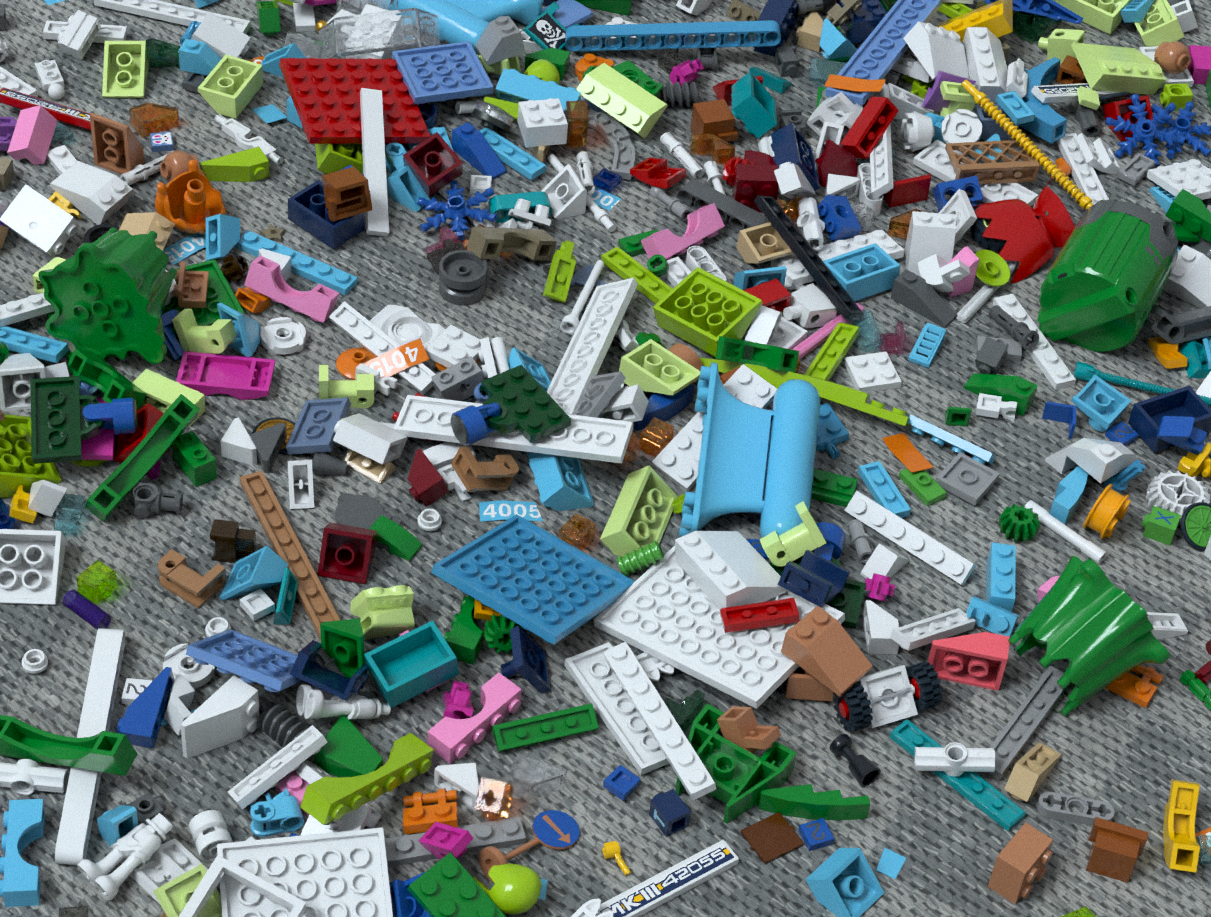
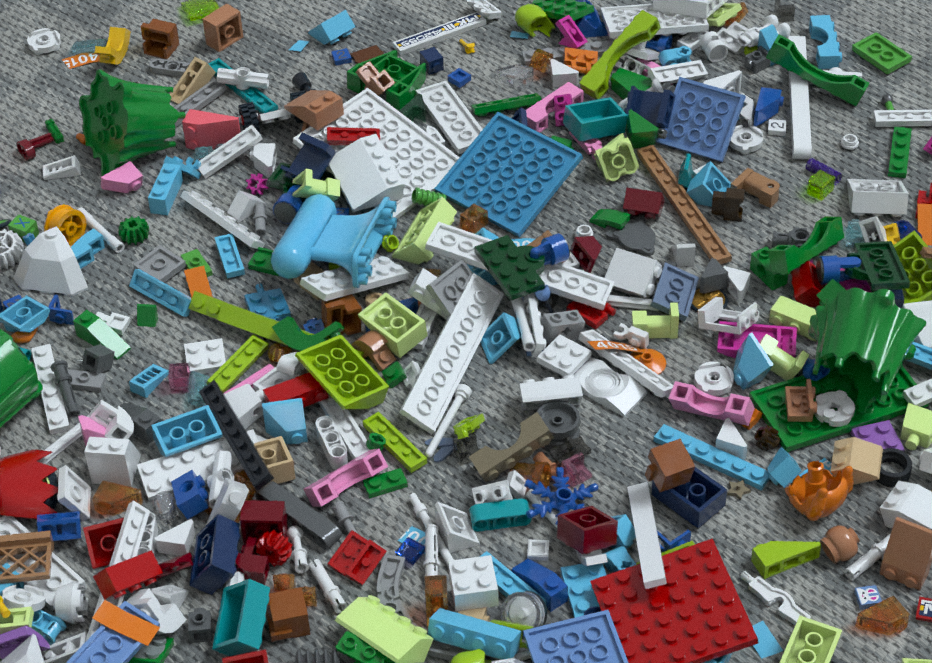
camera: 170 degrees left, 0 degrees up
(216, 626) = (730, 161): white plate -> none
(248, 363) = (714, 310): none -> white panel
(470, 299) = (536, 394): none -> white slope
(550, 828) = (507, 57): piece -> none
(655, 437) = (399, 288): clear orange brick -> none
(659, 721) = (433, 92): white plate -> none
(804, 803) = (332, 63): green slope -> none
(992, 268) = (63, 438): lime dish -> none

